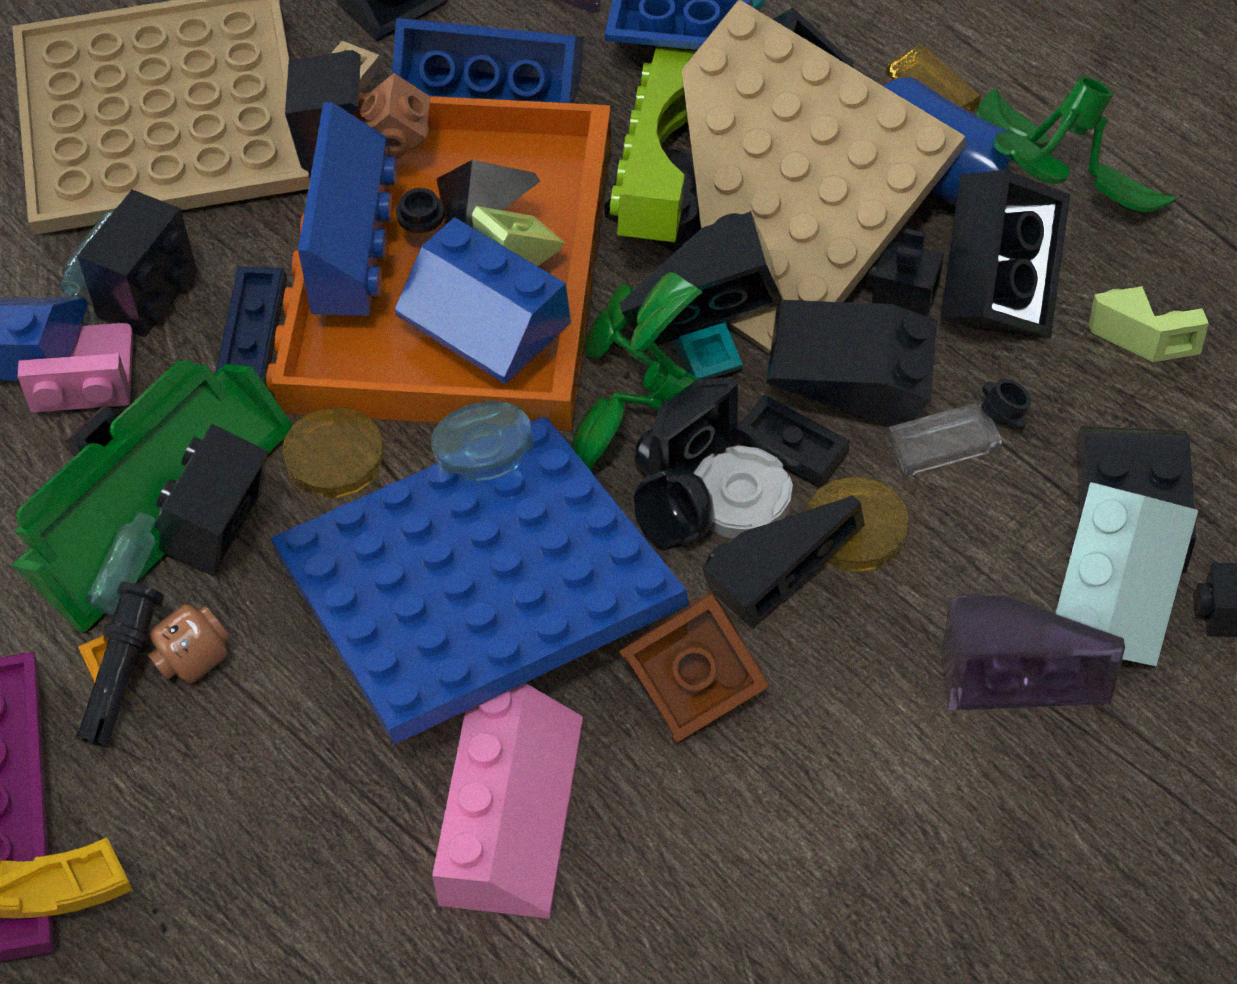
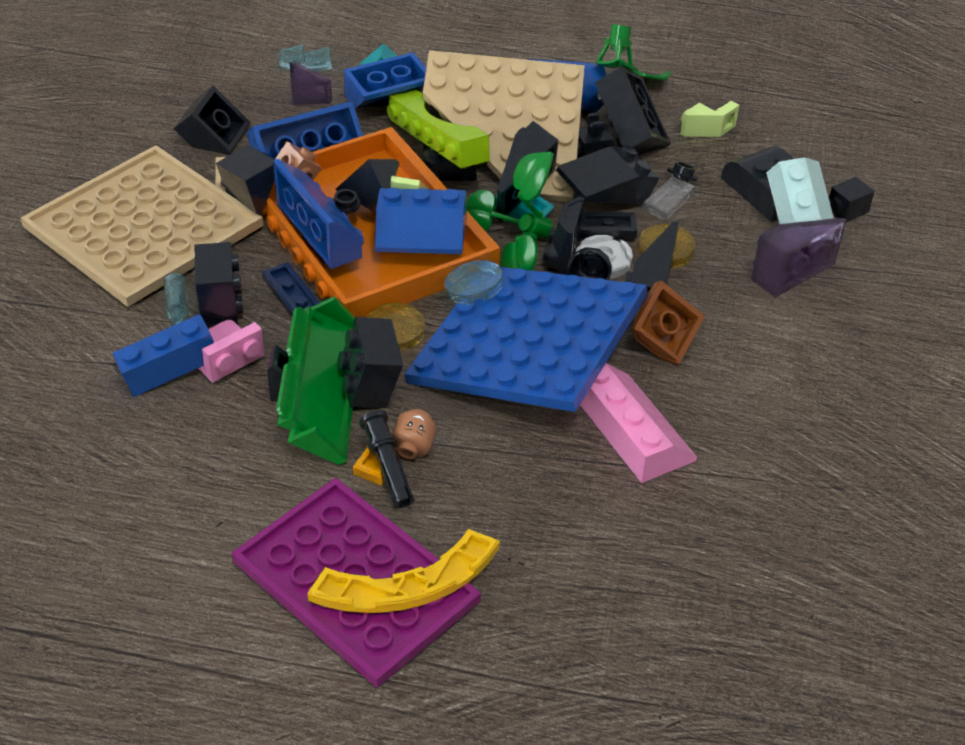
camera: 40 degrees left, 10 degrees down
(122, 562) = (345, 417): clear light blue cylinder -> none

